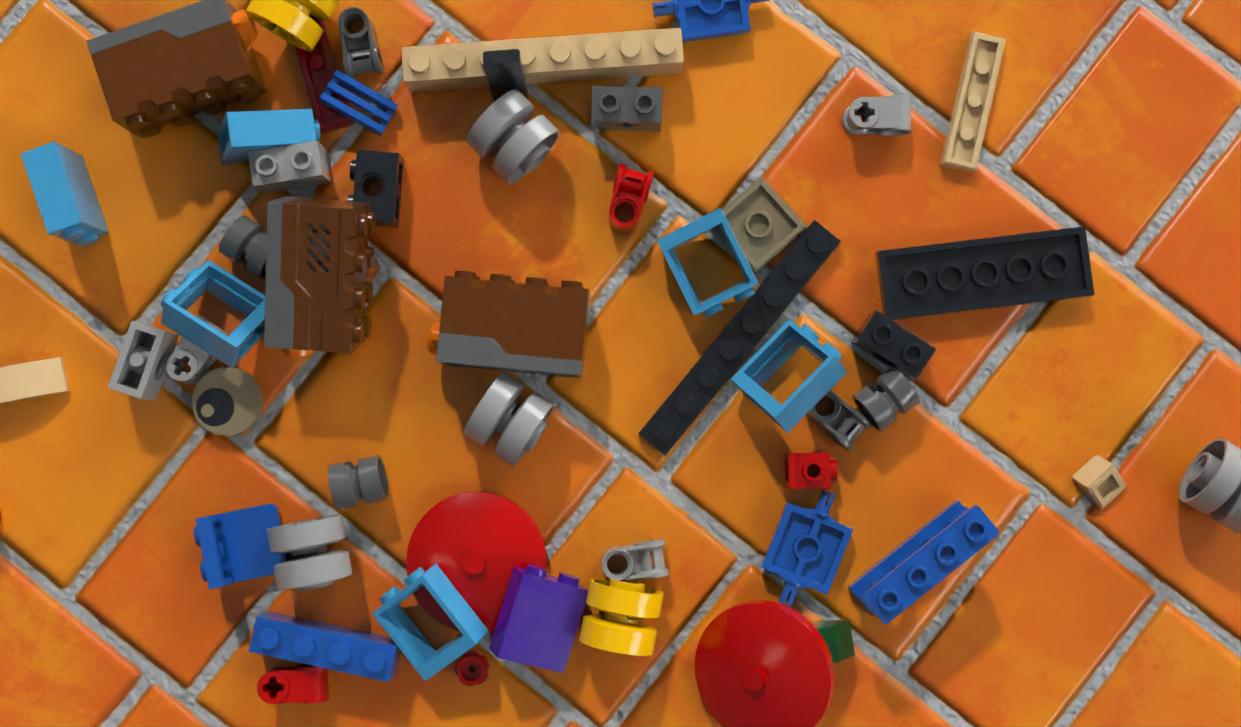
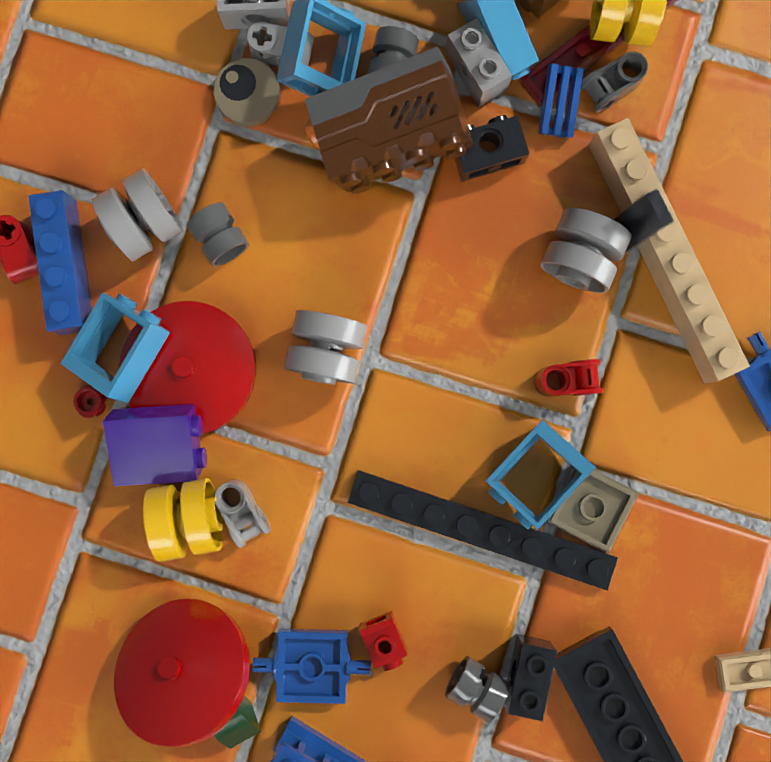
camera: 70 degrees right, 0 degrees up
(237, 545) = (121, 146): blue bracket -> none
(511, 325) = (412, 316): reddish brown piece -> none
(626, 108) = (652, 345): dark grey brick -> none
(772, 357) = (477, 568): dark azure window -> none
(841, 422) = (441, 653): dark grey piece -> none
(884, 116) = (740, 586): light grey piece -> none

